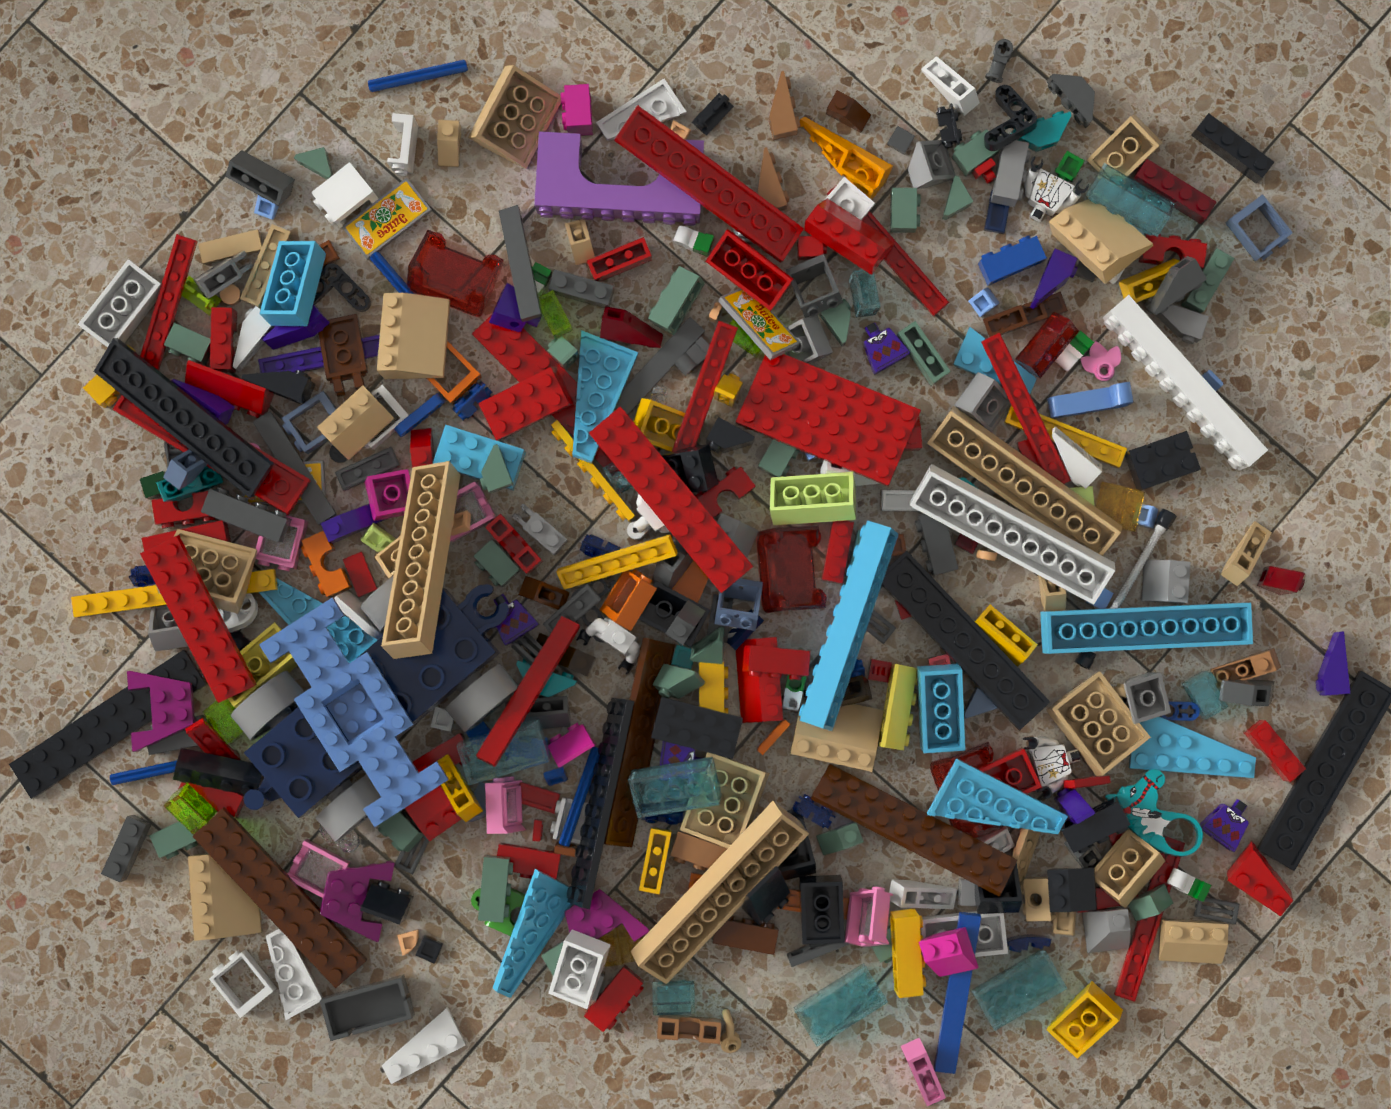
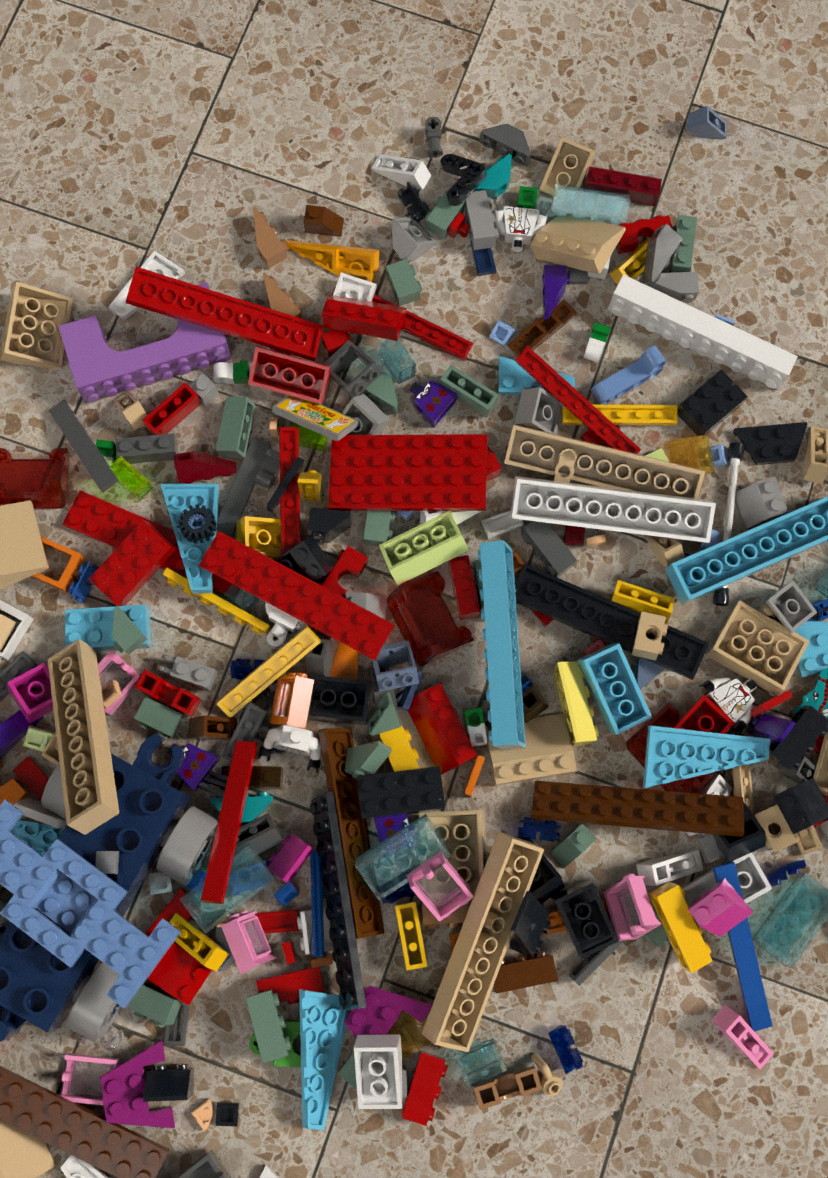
camera: 25 degrees left, 10 degrees down
(404, 689) = (107, 861): none -> light grey slope
(420, 414) = (39, 611): blue beam -> none
(421, 447) = (51, 639): red slope -> none
(507, 313) = (88, 493): dark purple torso -> none
(563, 352) = (151, 507): sand green slope -> none
(578, 114) = (86, 298): dark pink brick -> none
(605, 379) = (196, 515): none -> black bush
(660, 248) = (205, 389): none -> light grey brick
(682, 657) = (362, 736): teal tile -> none
(685, 622) = (352, 701): dark grey slope -> none
(698, 828) = (439, 886): none -> window
(702, 383) = (285, 484): none -> black tile
(713, 114) = (208, 264): black hinge -> none
(755, 1010) = (561, 1040): none -> clear blue hinge
(776, 662) = (449, 703): red brick -> none
(840, 1005) = (639, 1003): clear light blue brick -> none
(879, 670) = (545, 679): red tile -> none
(884, 621) = (532, 634): dark grey tile -> none
(900, 140) = (377, 229): dark grey tile -> none
(957, 199) = (445, 257): sand green slope -> none
(990, 465) = (567, 458): none -> tan piece
(1004, 664) = (649, 624): none -> tan brick
(1011, 259) = (511, 289): blue brick -> none
(1047, 344) = (571, 345): clear red brick -> none
(1079, 464) = (642, 432): white slope -> none
(1101, 358) = (620, 342): bright pink plate -> none
(1207, 523) = (772, 442): none -> black wing
(1232, 148) = (655, 136): black brick -> none
(1274, 219) = (711, 177): sand blue window -> none
(1294, 155) = (707, 124): none -> sand blue slope

